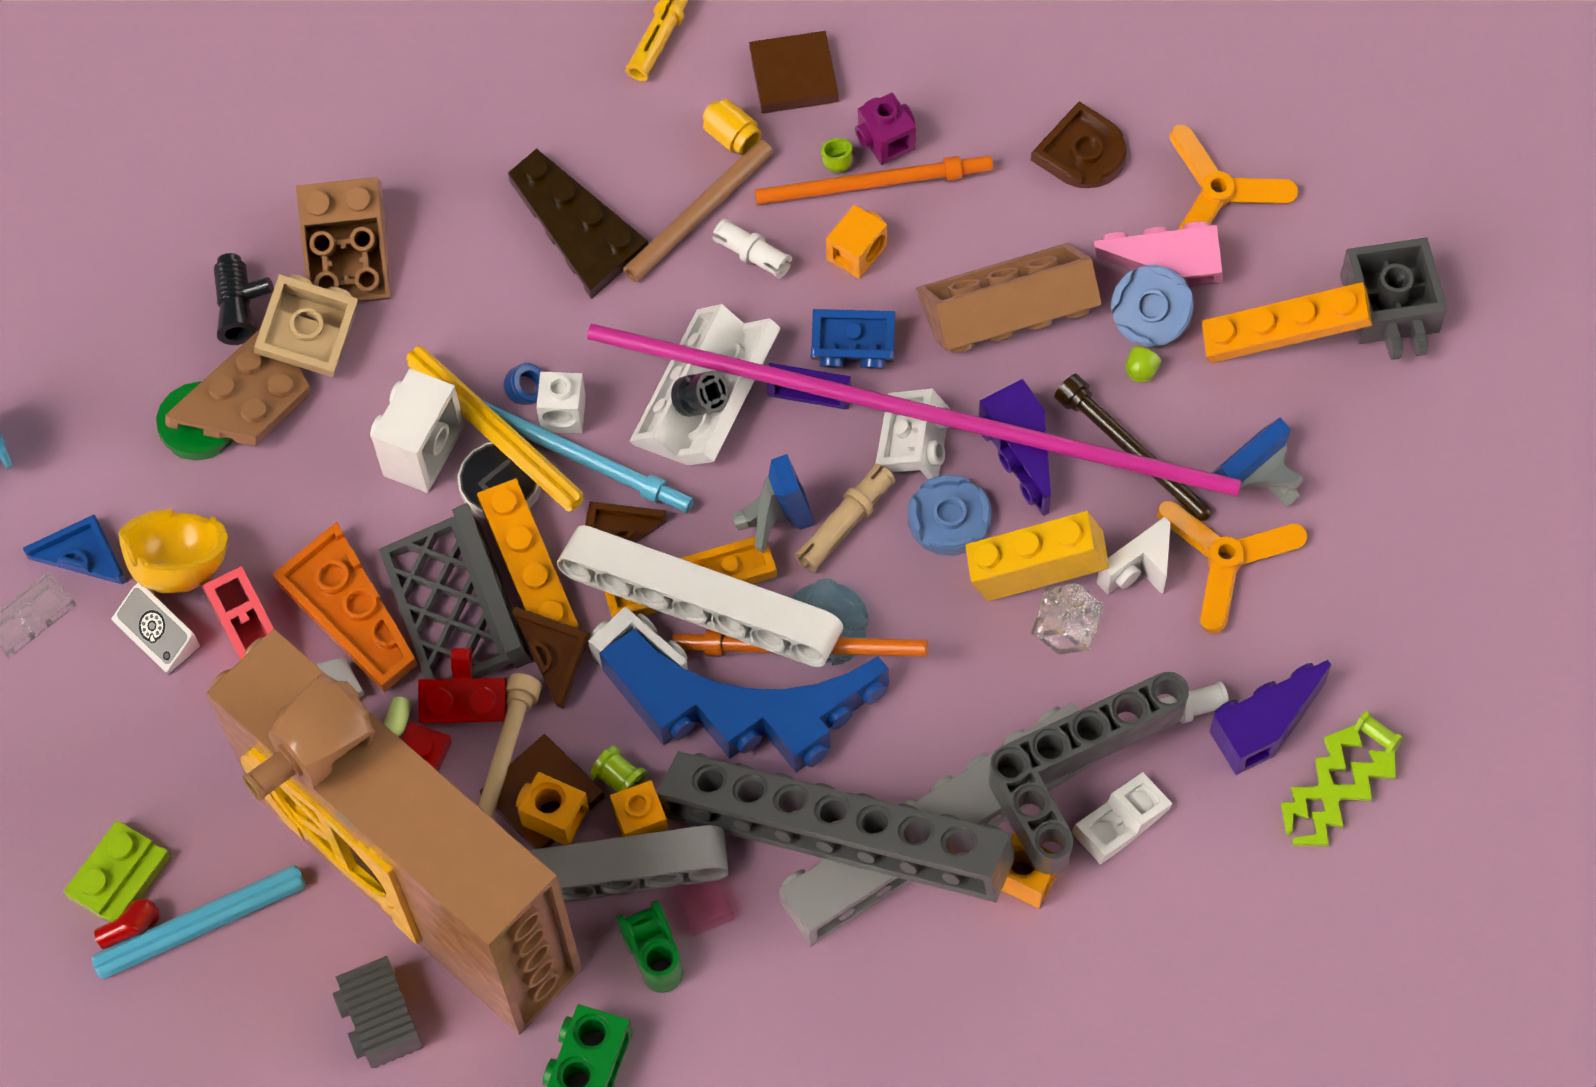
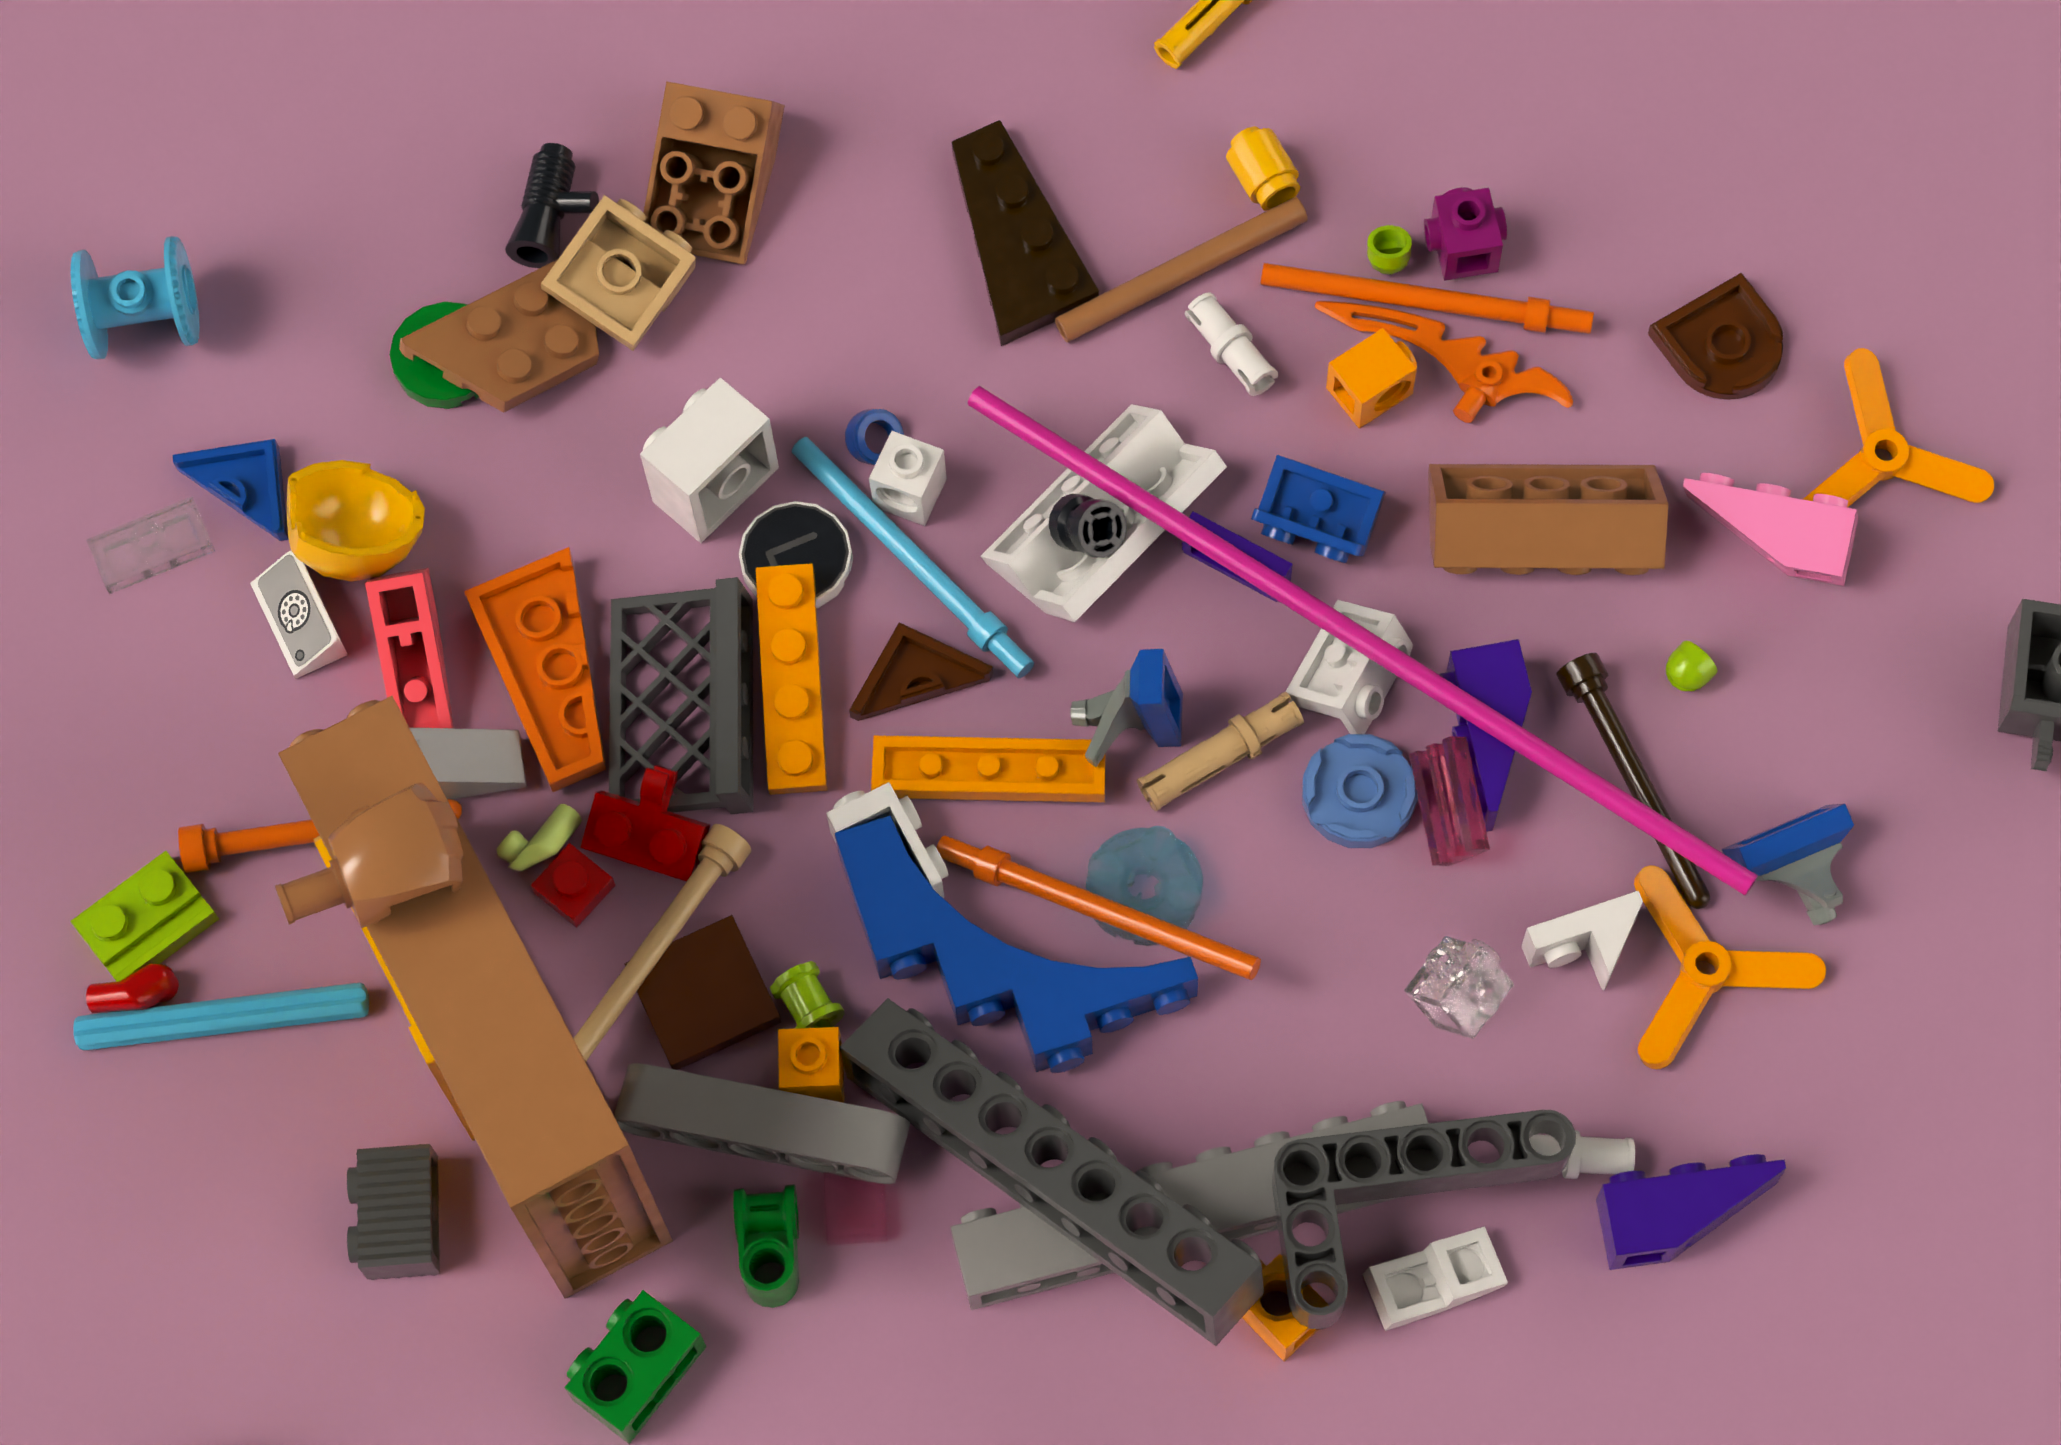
camera: 20 degrees right, 5 degrees up
(146, 807) = (204, 846): none -> orange piece
(501, 433) = (812, 489): yellow axle -> none
(556, 650) = (783, 810): reddish brown tile -> none
(563, 822) = (716, 1041): light orange brick -> none
(700, 596) = (989, 802): white beam -> none
(793, 71) = (1374, 115): reddish brown tile -> none
(930, 220) = (1481, 377): none -> orange piece
(1006, 502) = (1441, 803): none -> clear pink tile
(1037, 556) = (1448, 890): yellow brick -> none
(1152, 305) = (1732, 591): medium blue tile -> none
(1286, 322) = (1905, 674): light orange plate -> none
(1331, 794) = (1726, 1341): lime piece -> none

